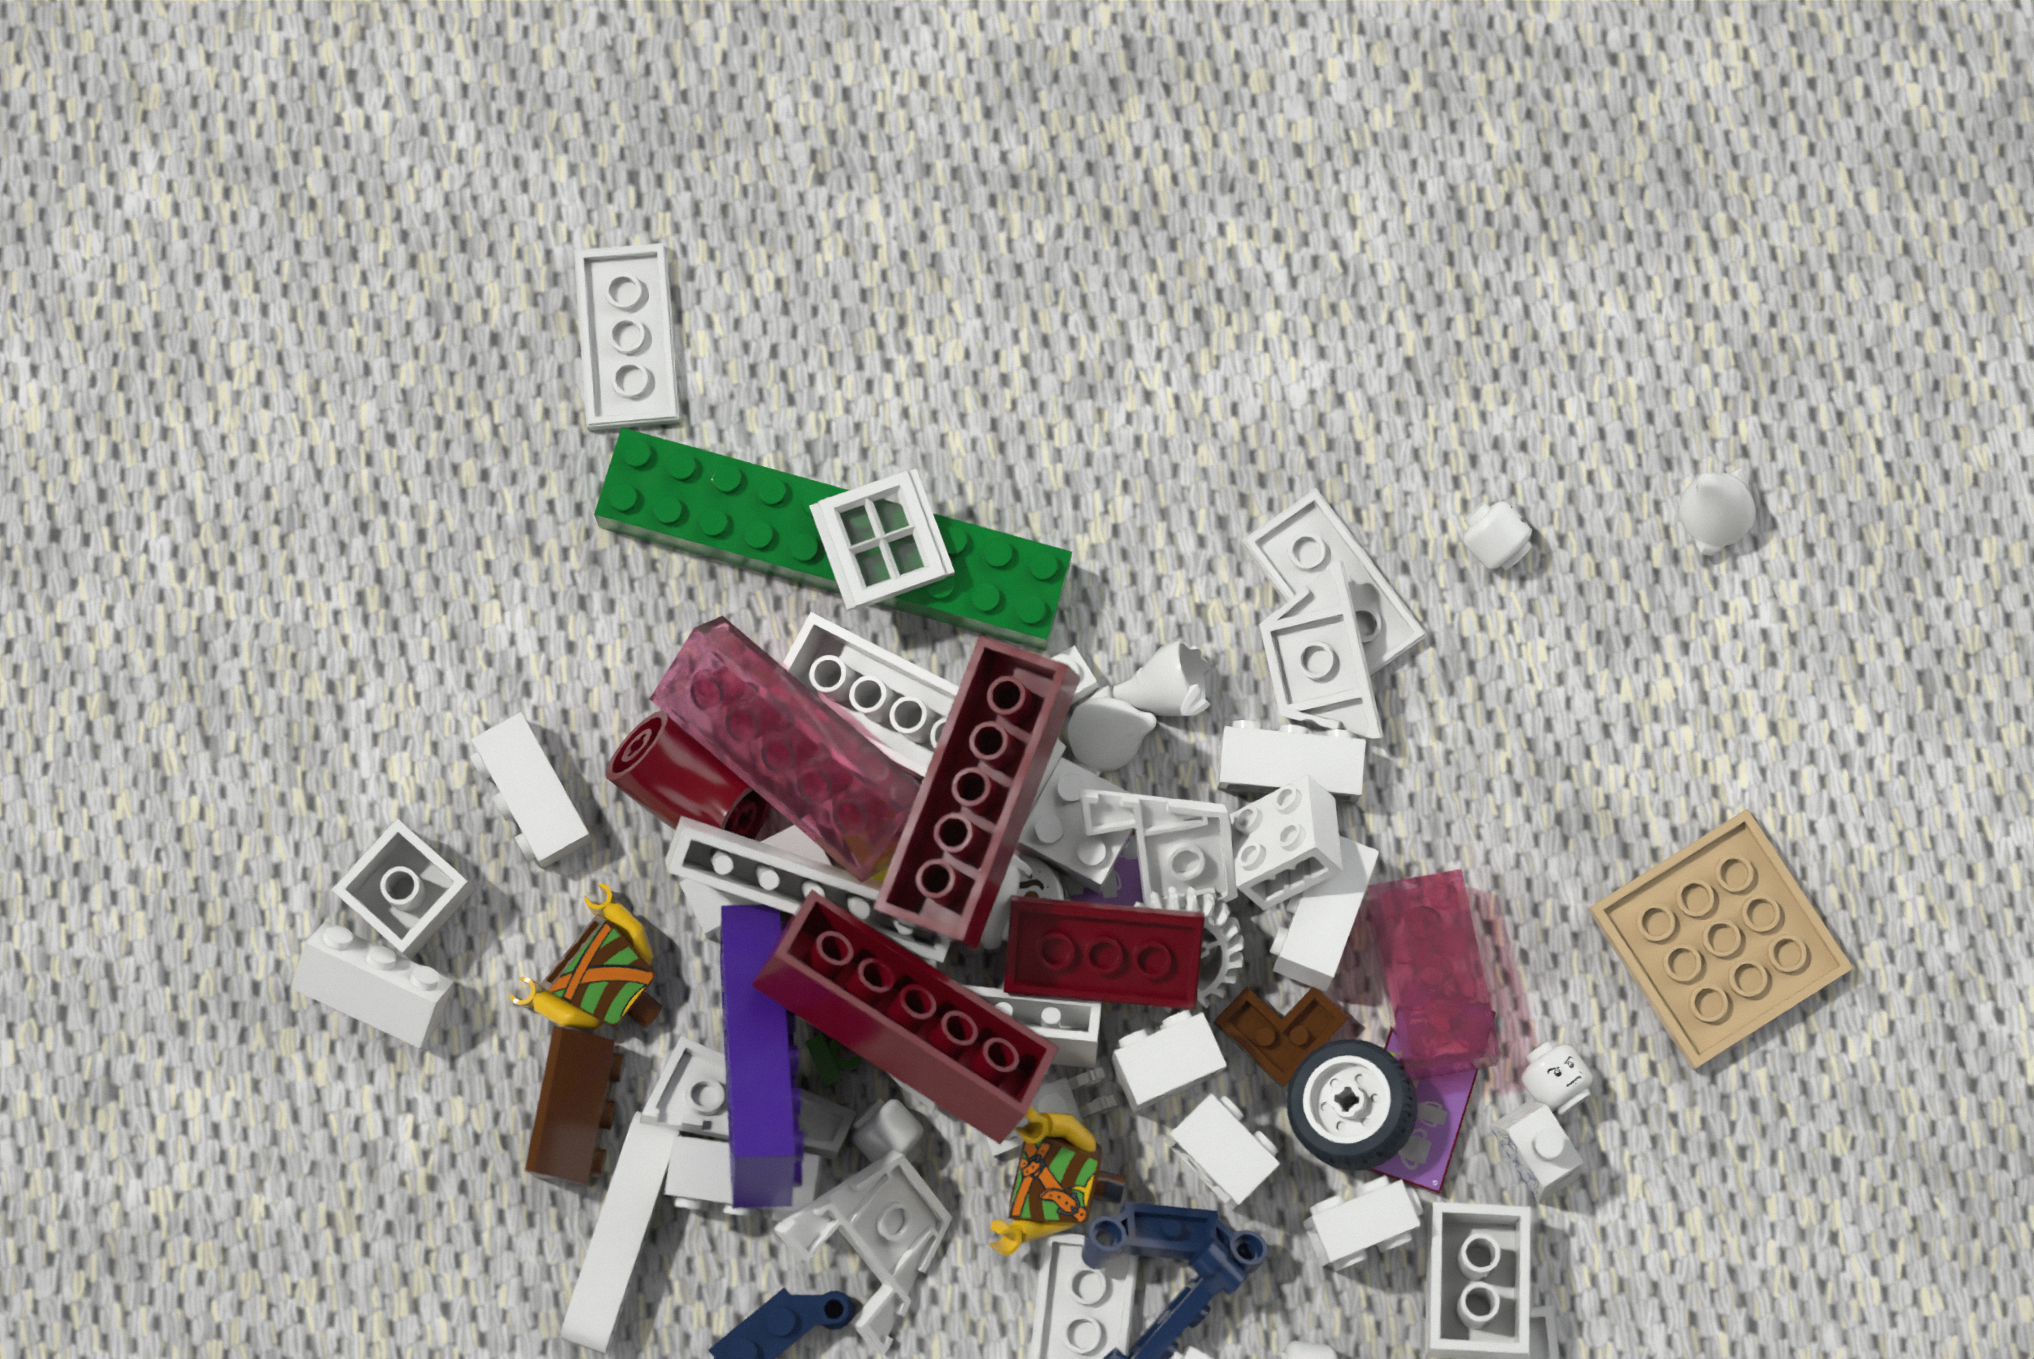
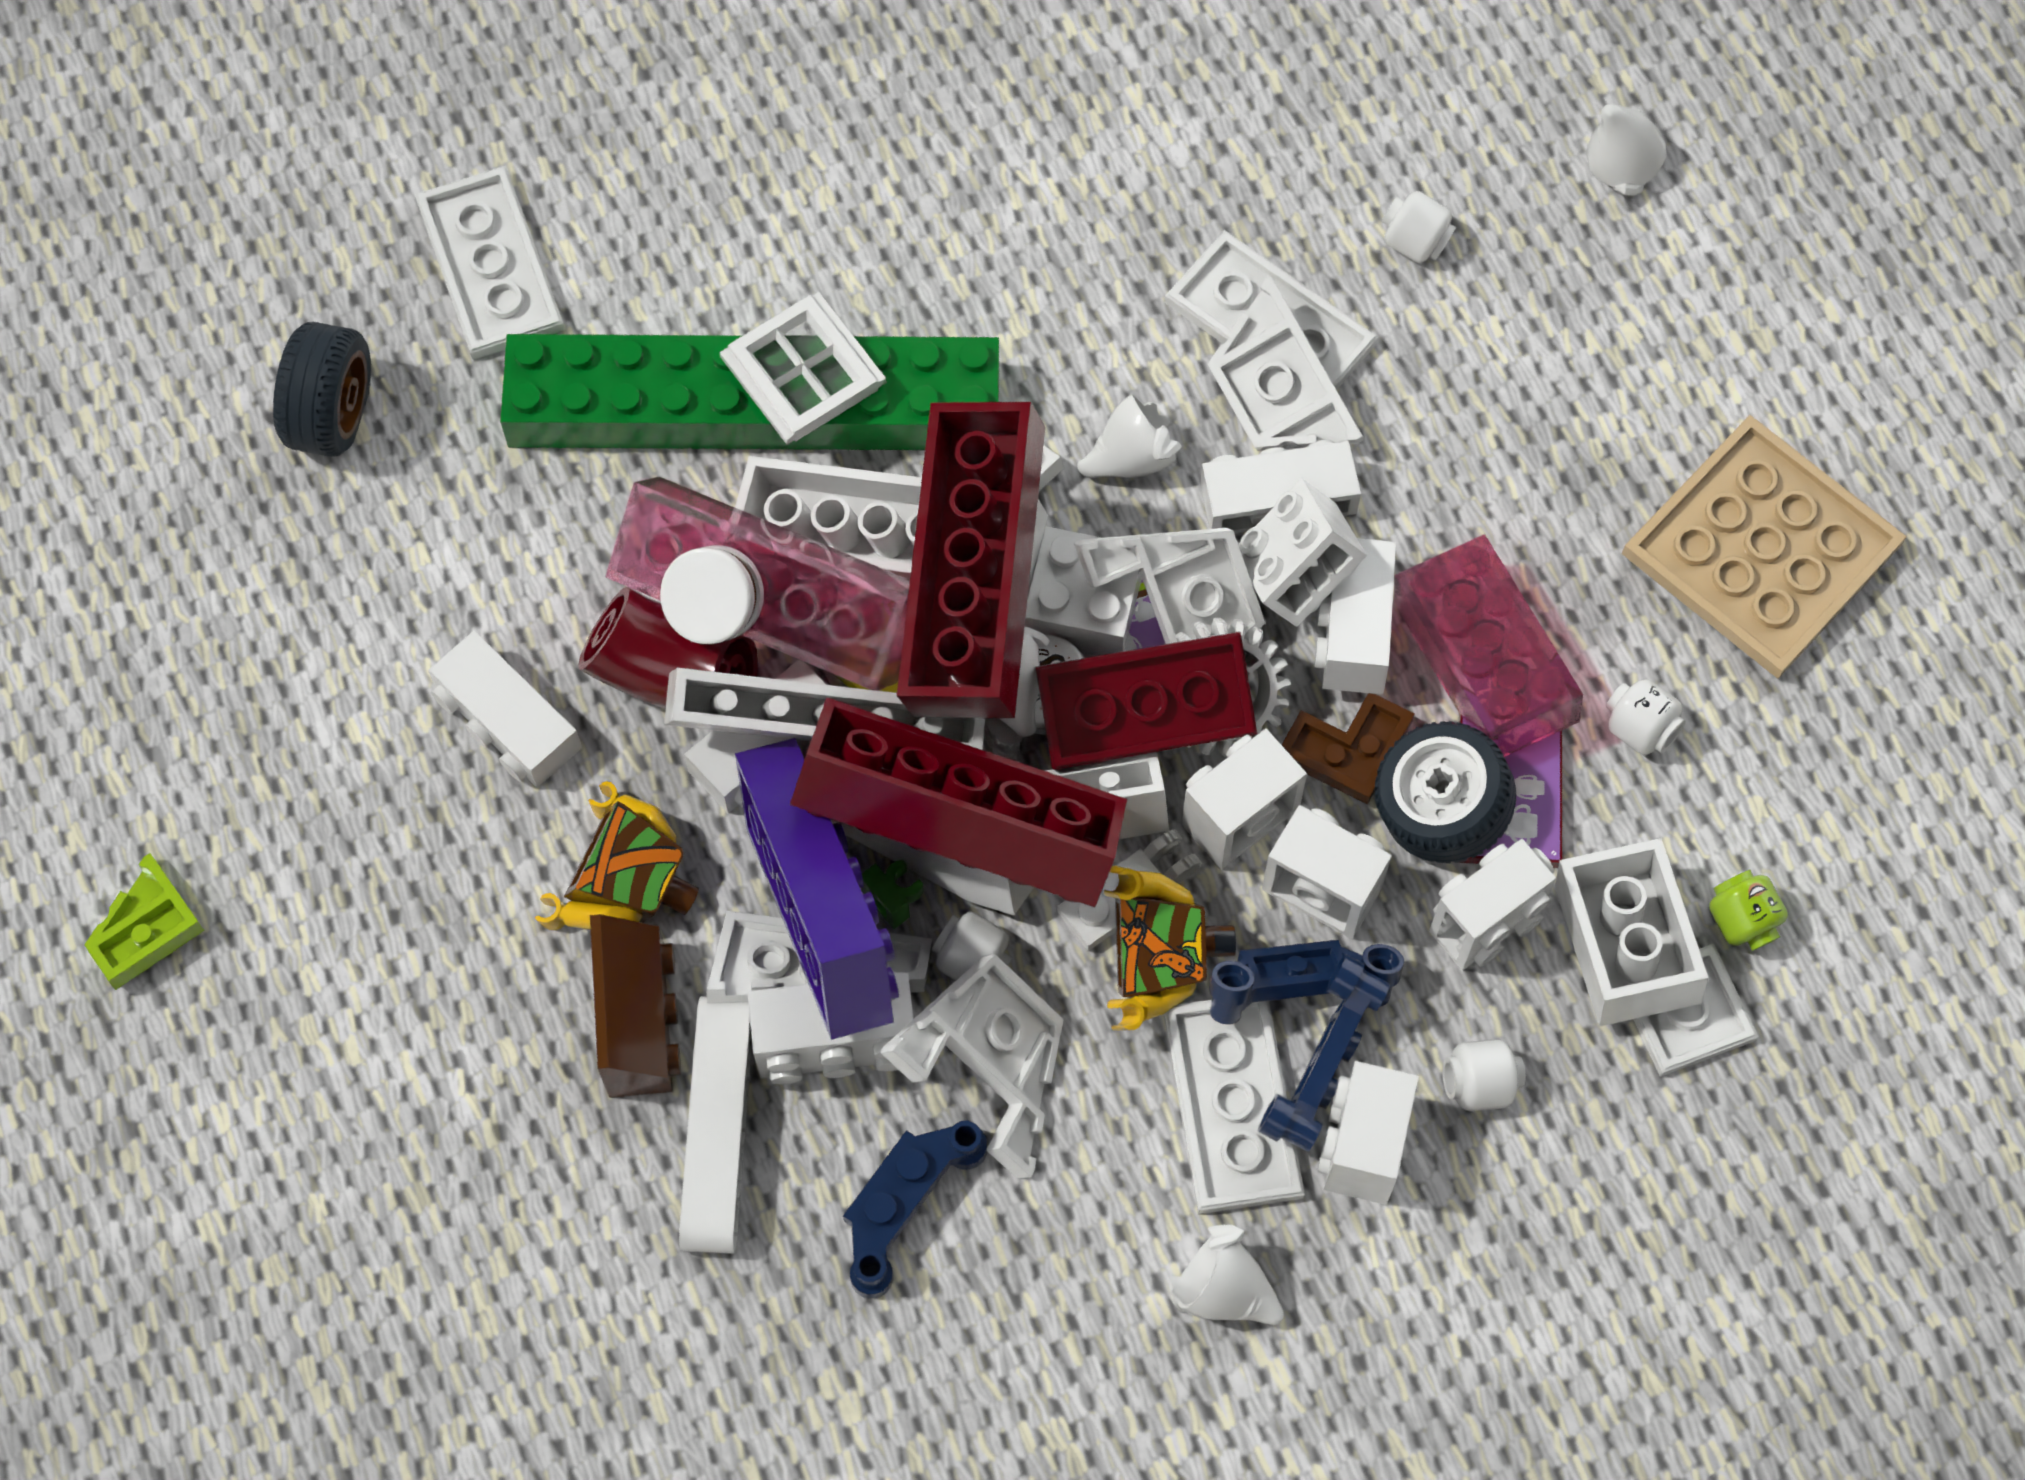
camera: 10 degrees left, 10 degrees down
(163, 908) = (142, 926): none -> lime wing
(372, 984) = (385, 938): white brick -> none
(403, 889) = (394, 836): white brick -> none
(440, 436) = (321, 388): none -> black wheel
(737, 754) = (711, 594): none -> white head
(1107, 732) = (1088, 497): white hat -> none
(1538, 1148) = (1651, 789): white torso -> none
(1592, 1286) = (1748, 910): none -> lime head

